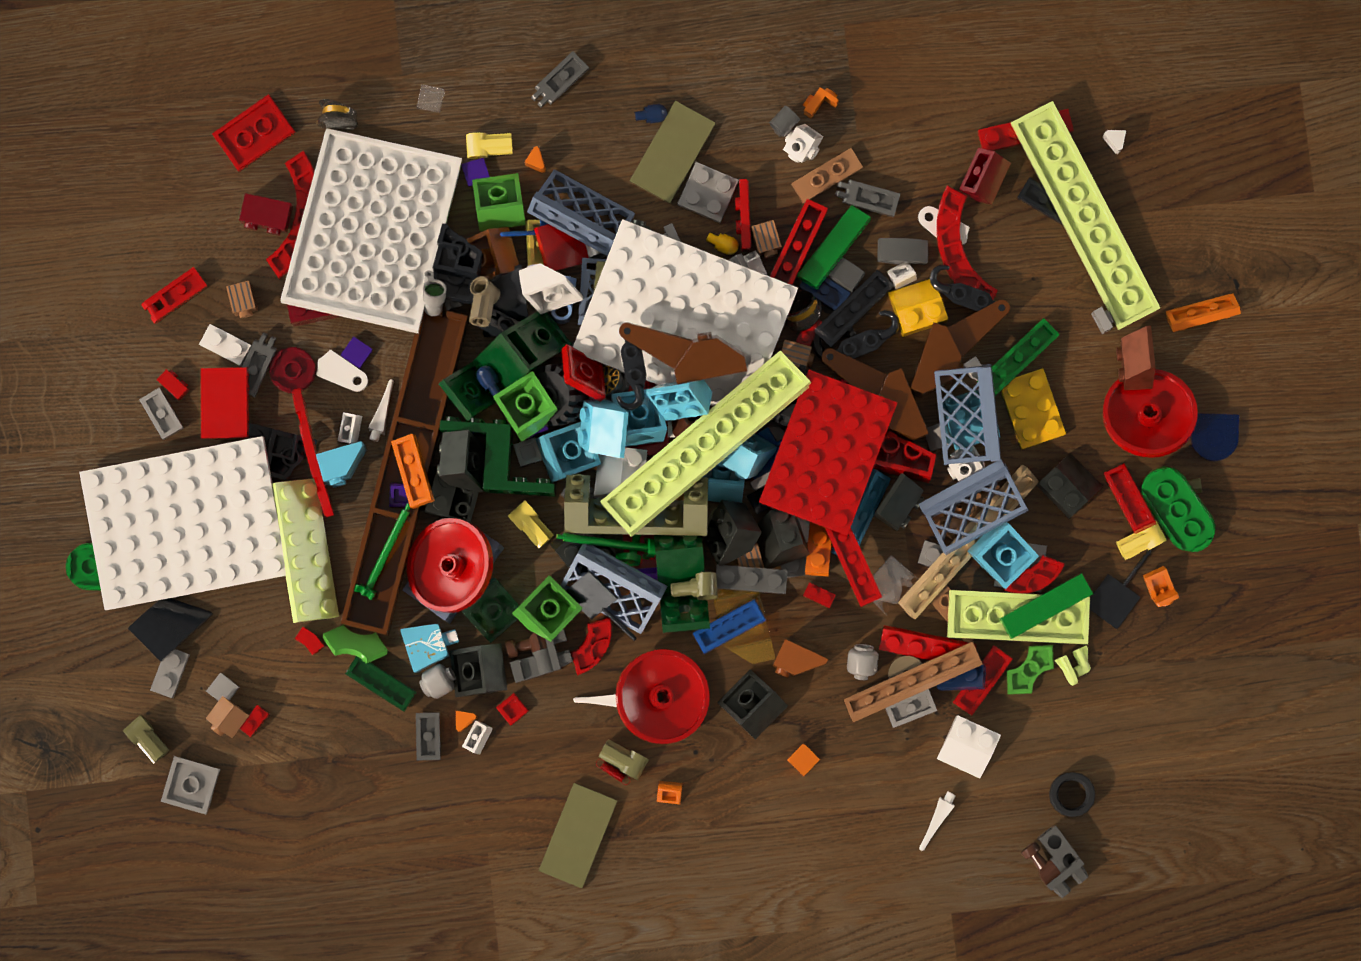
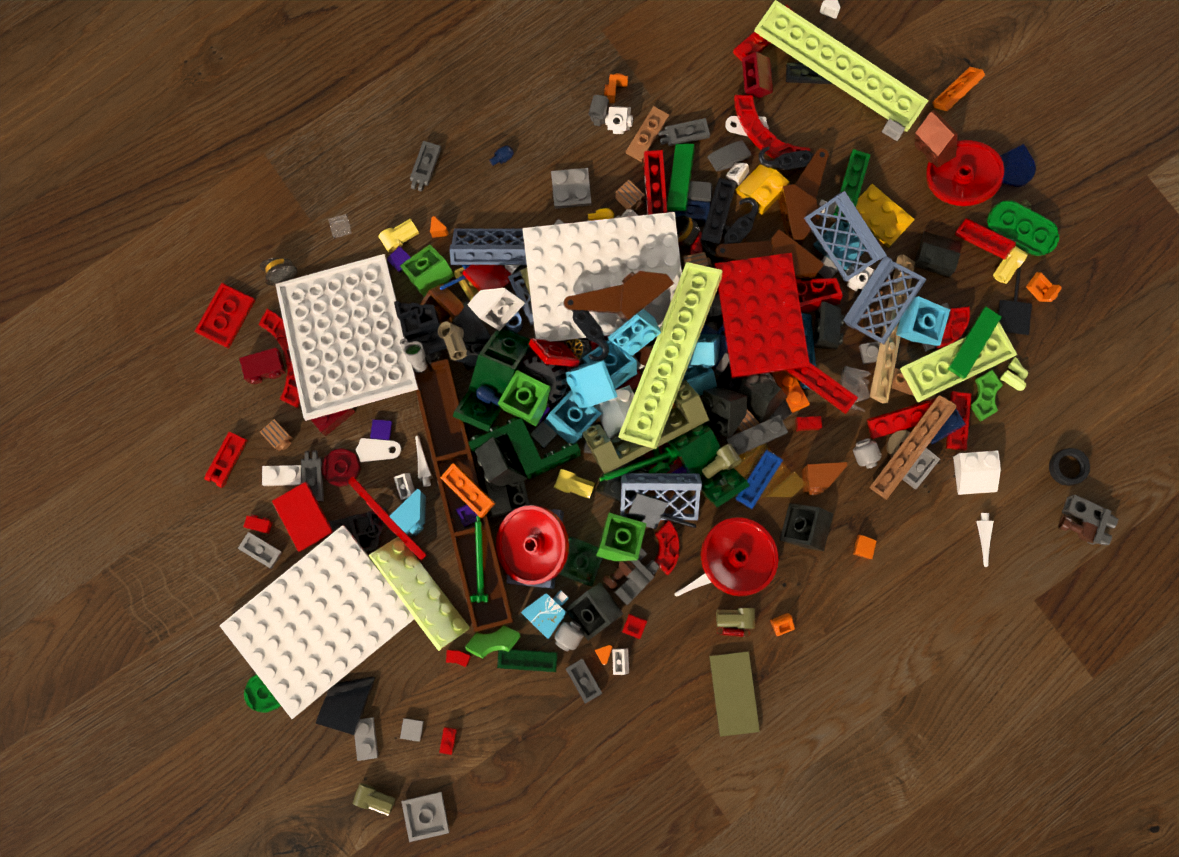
camera: 30 degrees left, 5 degrees down
(226, 717) = (426, 750): medium nougat brick -> none
(672, 152) = (531, 174): olive tile -> none
(742, 205) = (608, 194): red plate -> none

